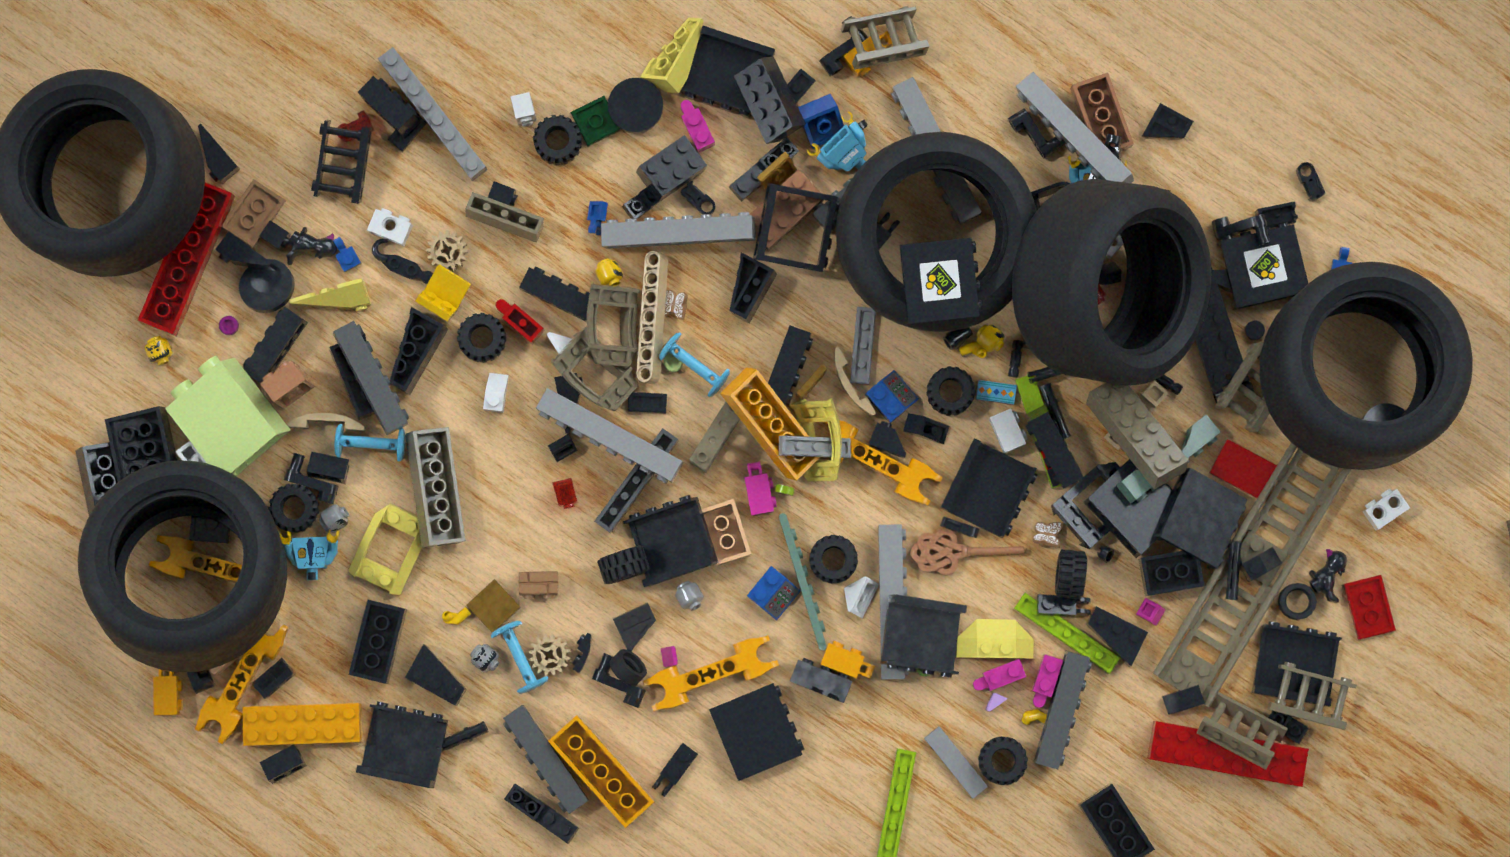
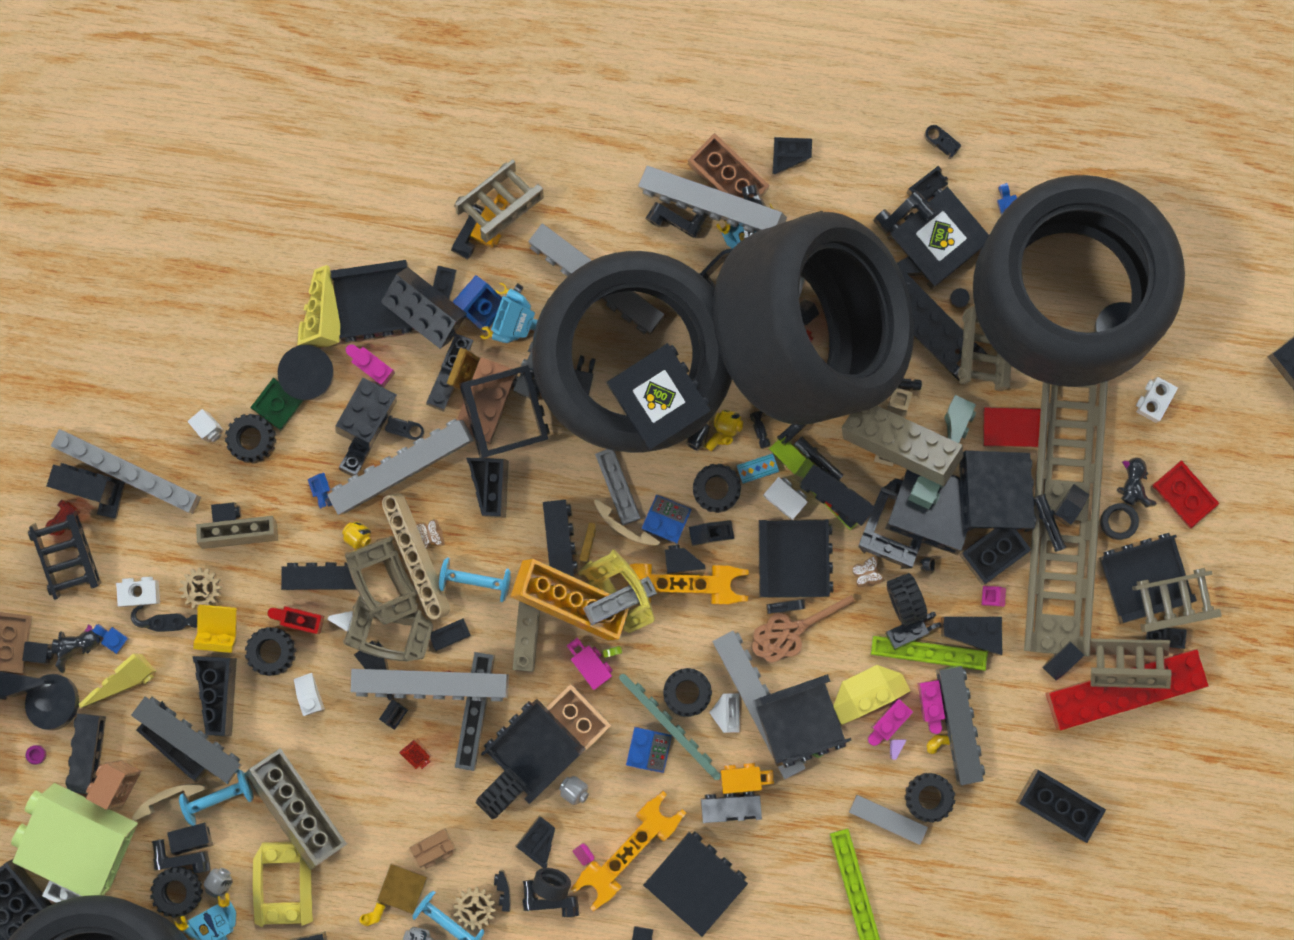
camera: 25 degrees left, 0 degrees up
(672, 363) = (454, 588): yellowish green tile -> none

